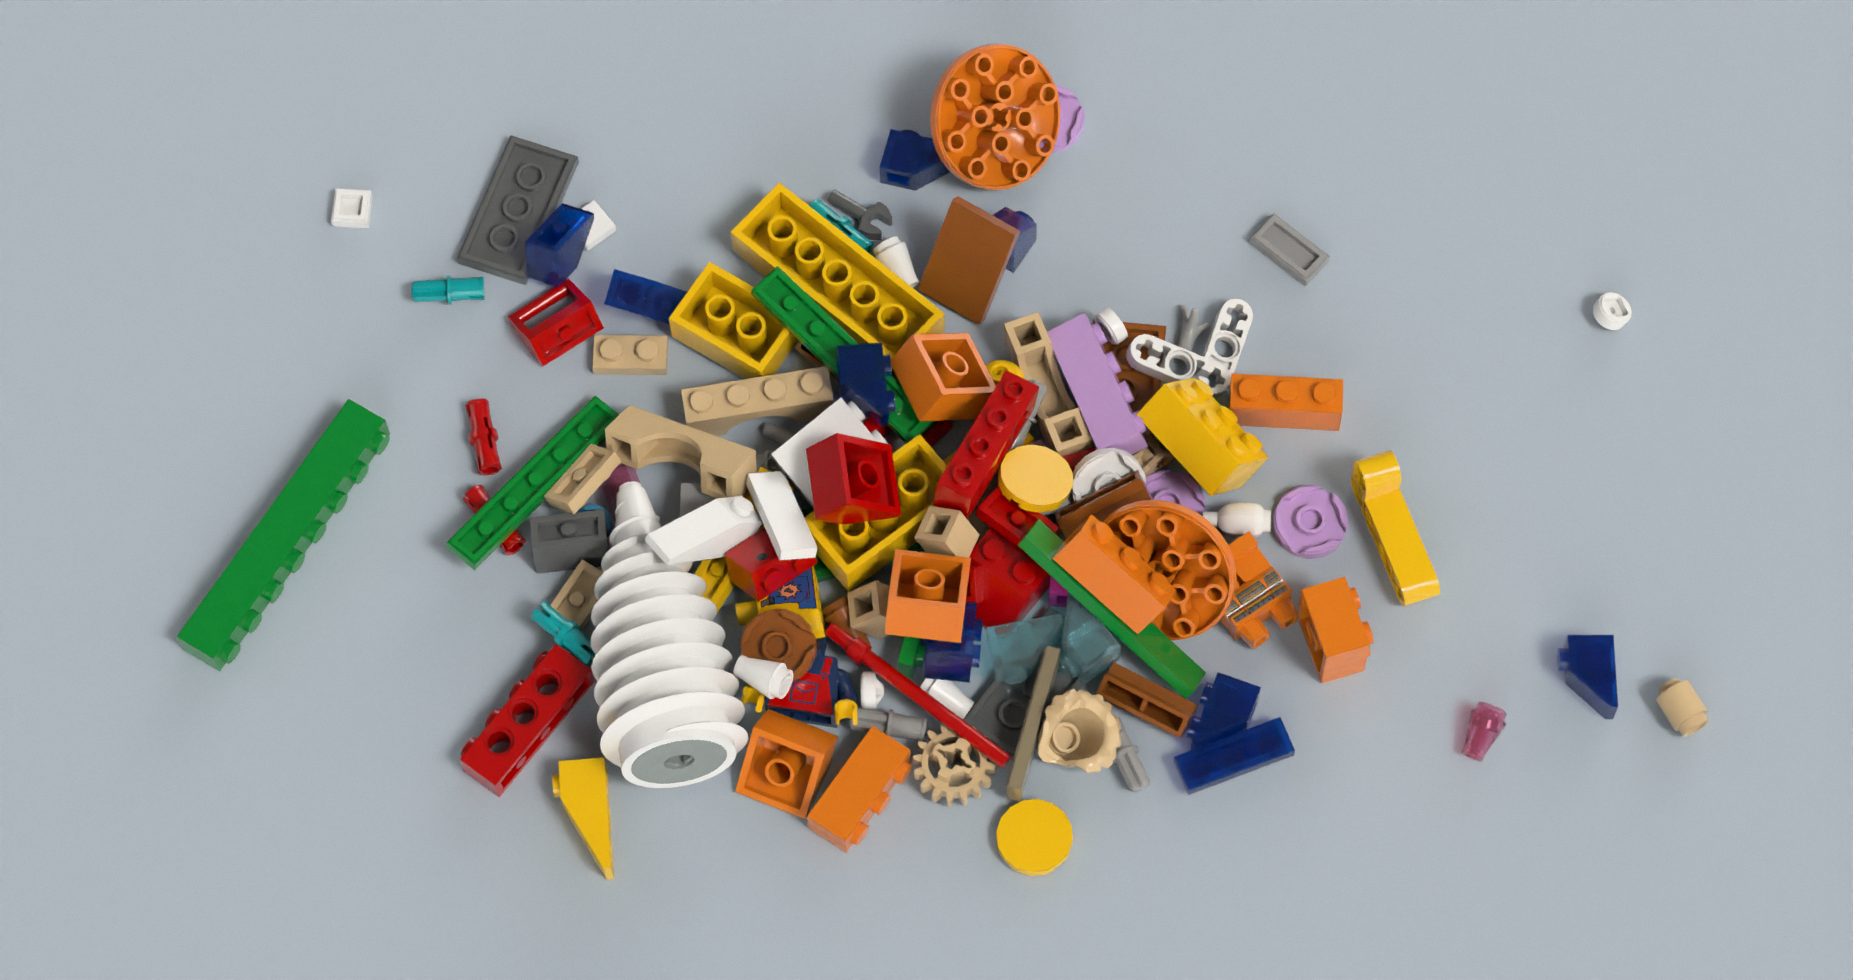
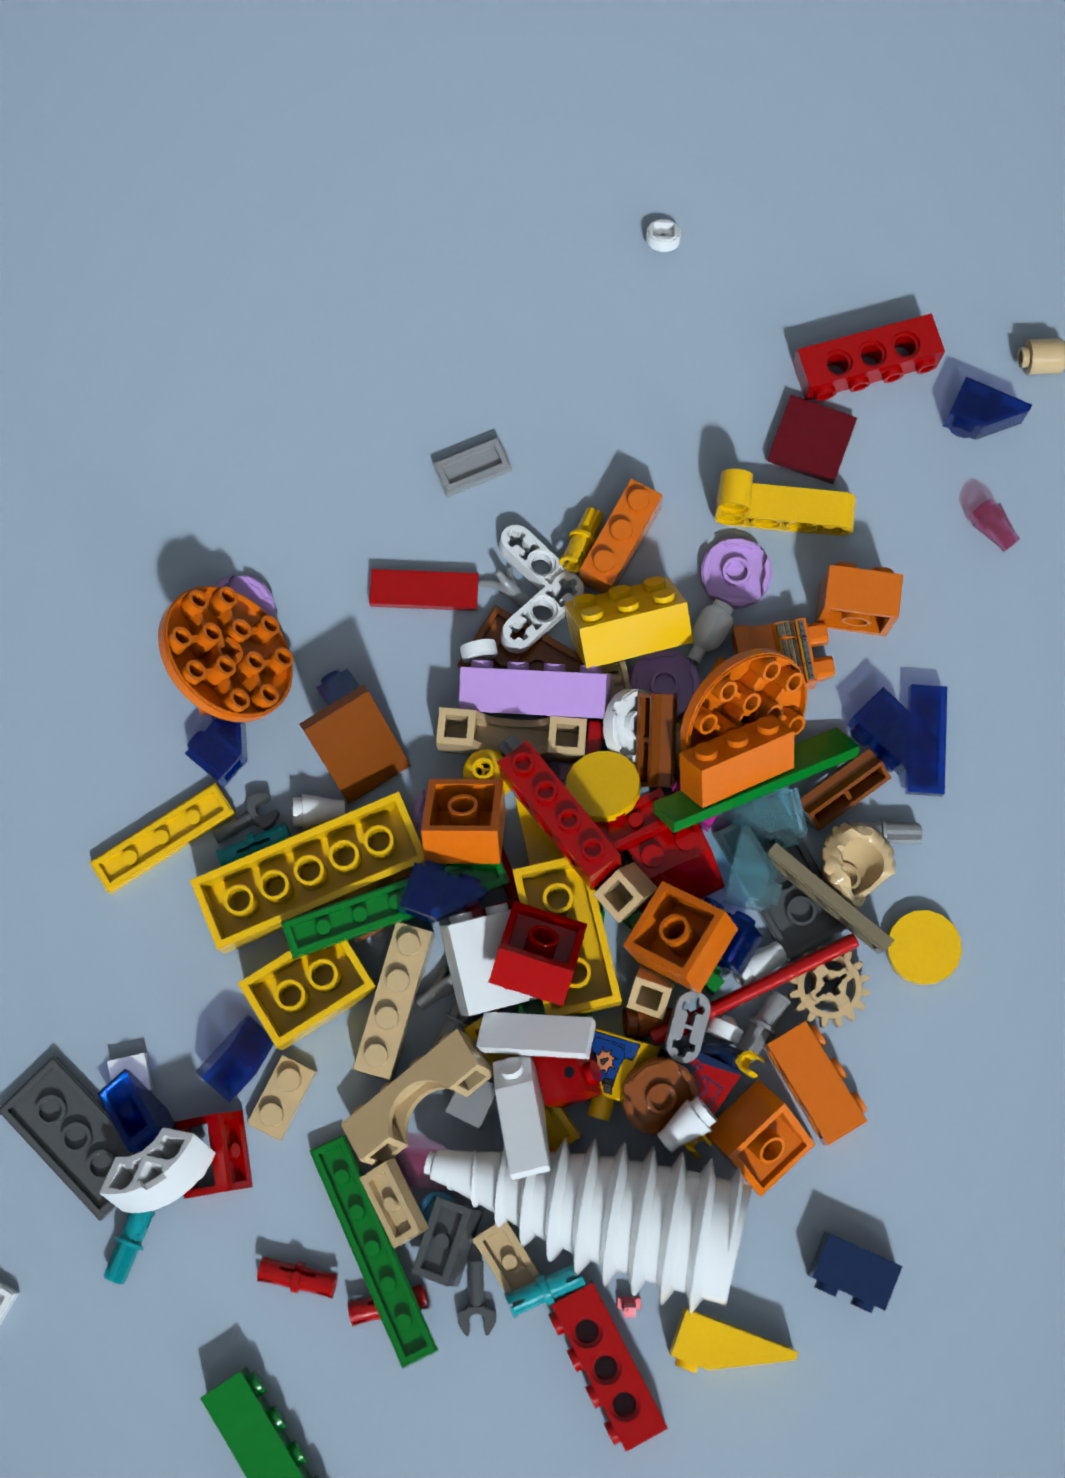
camera: 65 degrees left, 10 degrees up
(518, 275) = (158, 1172): none -> white brick
(529, 592) = (476, 1300): none -> dark grey bar
(586, 720) = (629, 1305): none -> coral piece
(705, 894) = (855, 1272): none -> dark blue brick
(810, 154) = (162, 838): none -> yellow tile
(856, 653) = (696, 1028): none -> light grey beam
(1149, 261) = (424, 590): none -> red tile
(1266, 367) = (581, 540): none -> yellow axle
(1480, 532) = (812, 439): none -> dark red tile
(1558, 498) = (915, 335): none -> red brick

